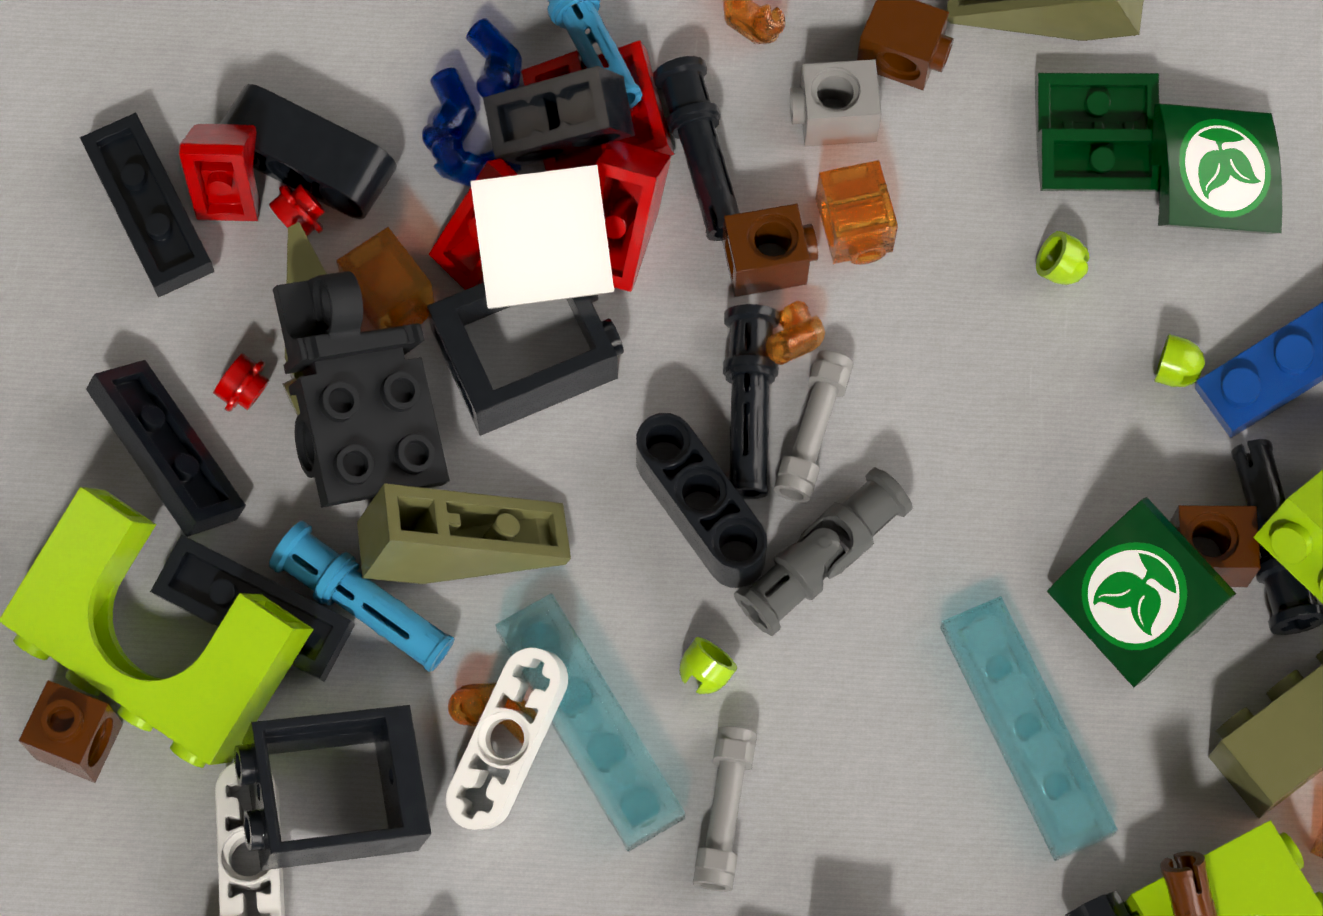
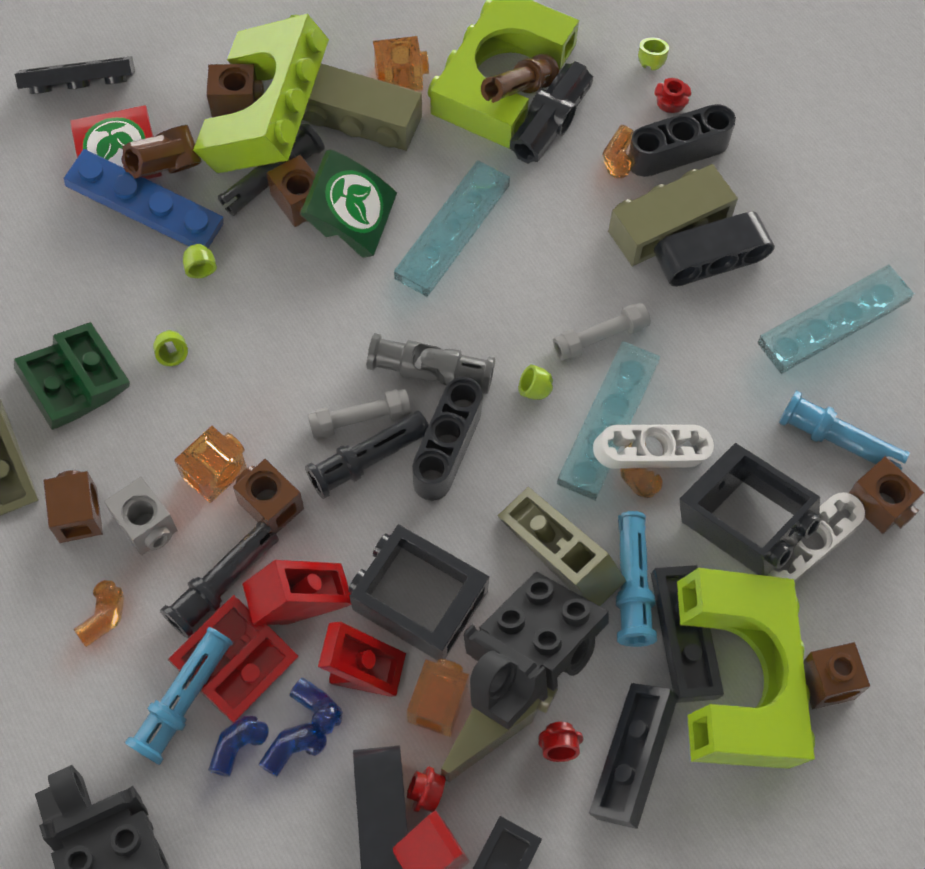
camera: 125 degrees left, 5 degrees down
(542, 236) = (358, 599): white tile -> none
(559, 116) = (266, 650): black brick -> none
(799, 334) = (309, 447): clear orange arm -> none
(1217, 169) = (61, 295): slope -> none

